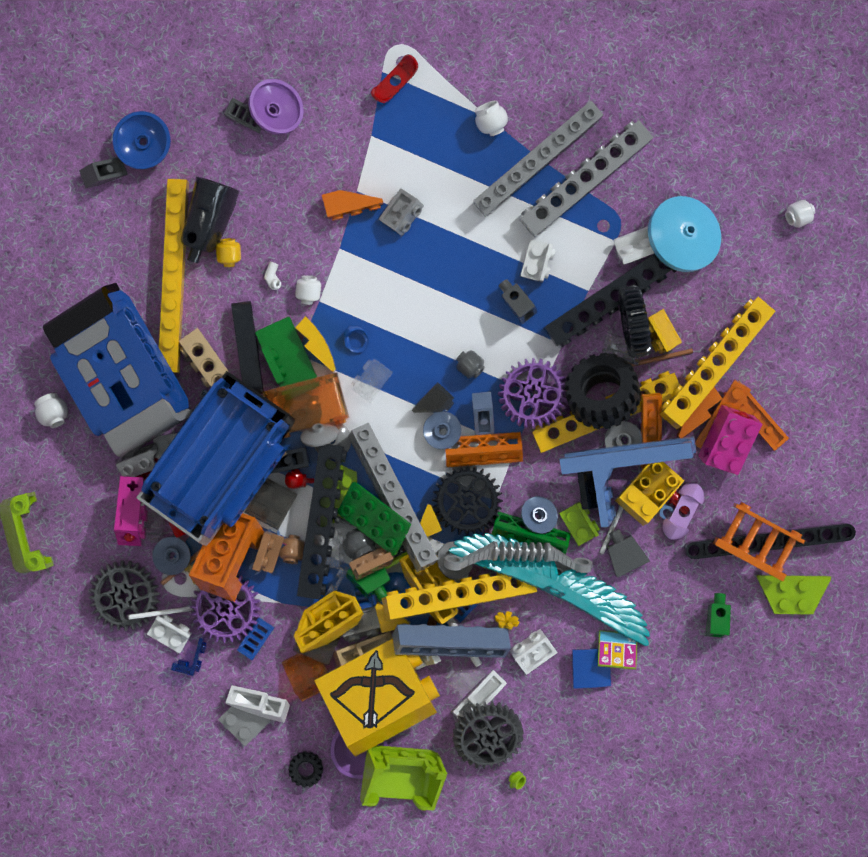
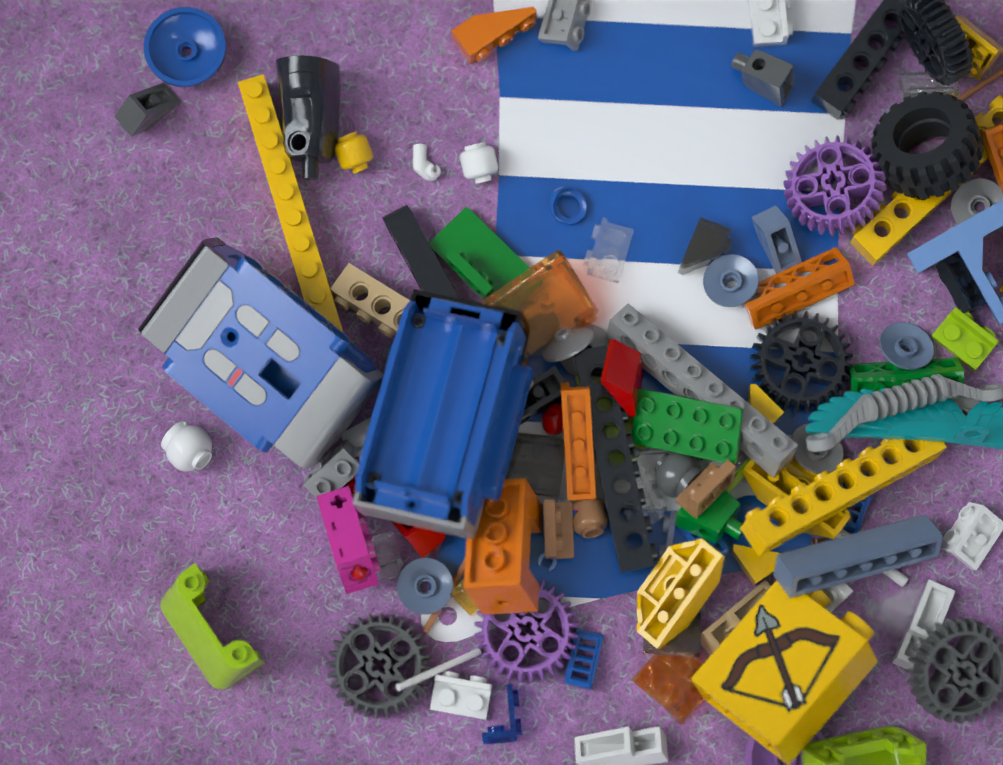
camera: 20 degrees left, 10 degrees down
(300, 502) = (578, 442): none -> orange fence
(316, 343) = (517, 227): yellow slope -> none
(346, 470) = (623, 374): none -> red slope
(367, 626) = (733, 584): light grey bracket -> none
(470, 364) = (734, 180): dark grey head -> none
(506, 620) = (918, 506): yellow plant -> none

